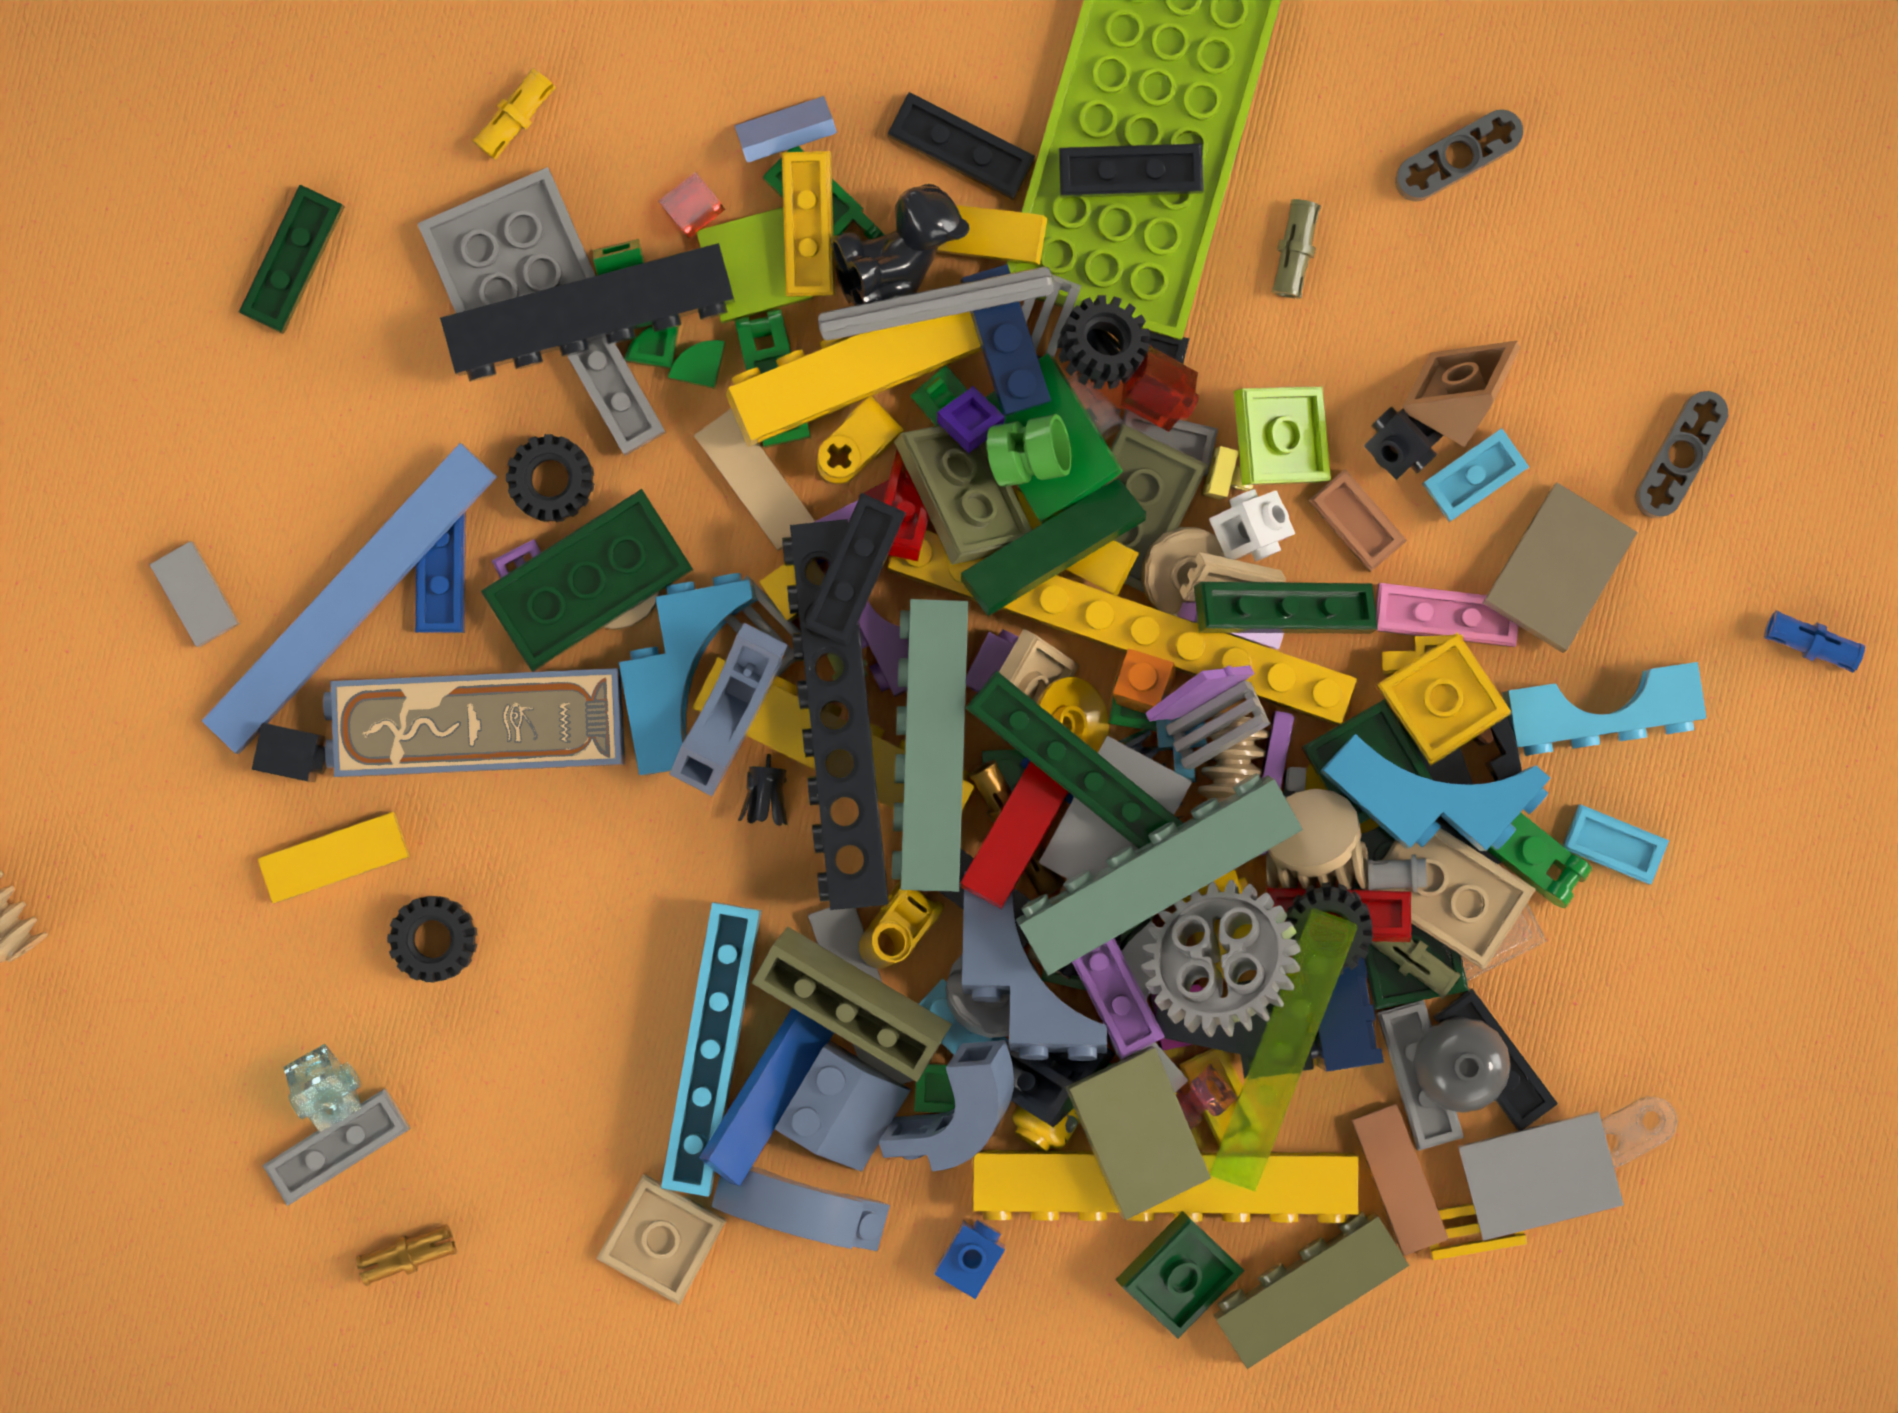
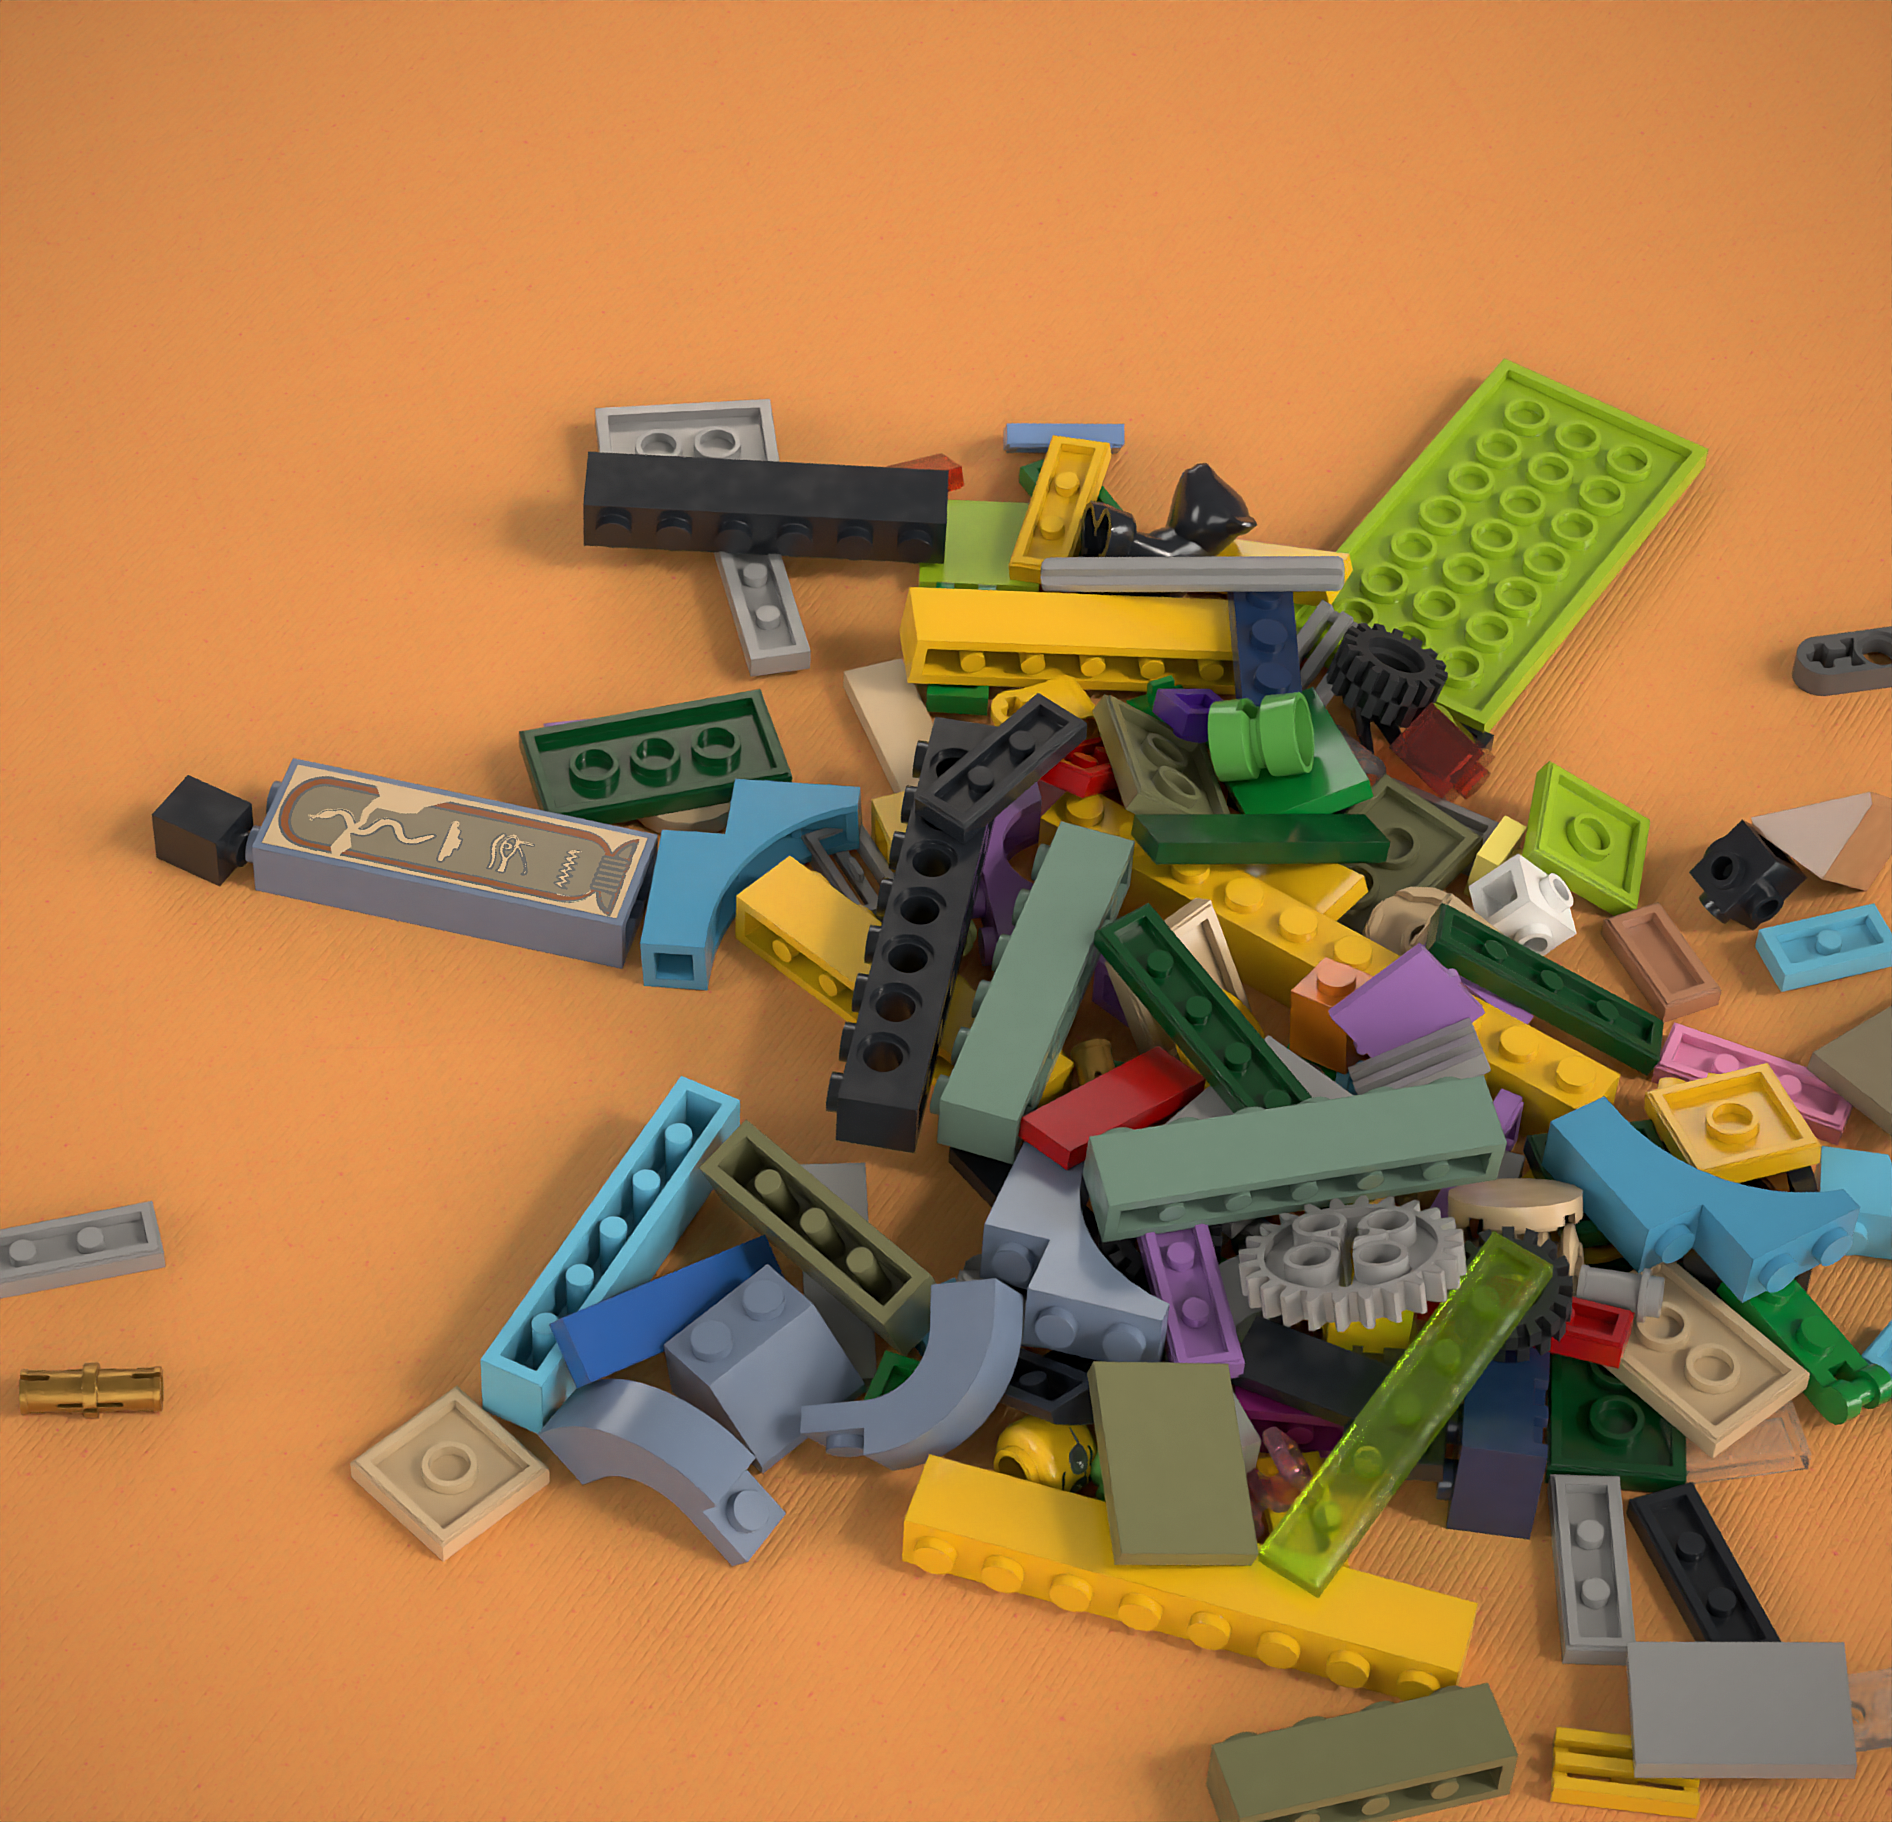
camera: 10 degrees right, 40 degrees down
(194, 594) = (165, 669): light grey tile -> none
(291, 259) = (431, 418): dark green tile -> none
(322, 1088) = (75, 1136): clear light blue brick -> none
(333, 857) = (206, 955): yellow tile -> none
(349, 598) = (358, 705): medium blue tile -> none
(403, 939) = (301, 1088): black tyre -> none
(442, 583) = (479, 716): blue tile -> none
(514, 114) = (749, 358): yellow pin -> none
(541, 450) = (649, 642): black tyre -> none
(653, 348) = (830, 593): green tile -> none
(699, 364) = (872, 618): green tile -> none
(729, 710) = (798, 882): sand blue arch -> none
(763, 786) = (795, 1013): black piece -> none
(904, 921) = (919, 1195): yellow piece -> none
(961, 146) = (1279, 513): black tile -> none
(970, 1257) = (876, 1597): blue brick -> none
(1131, 170) = (1468, 557): black tile -> none
(1180, 1275) = (1174, 1690): dark green tile -> none
(1296, 248) = (1651, 689): olive pin -> none
(1399, 1180) = (1530, 1674): nougat tile -> none
(1417, 961) = (1619, 1407): olive pin -> none
(1462, 1064) = (1657, 1546): dark grey cylinder -> none

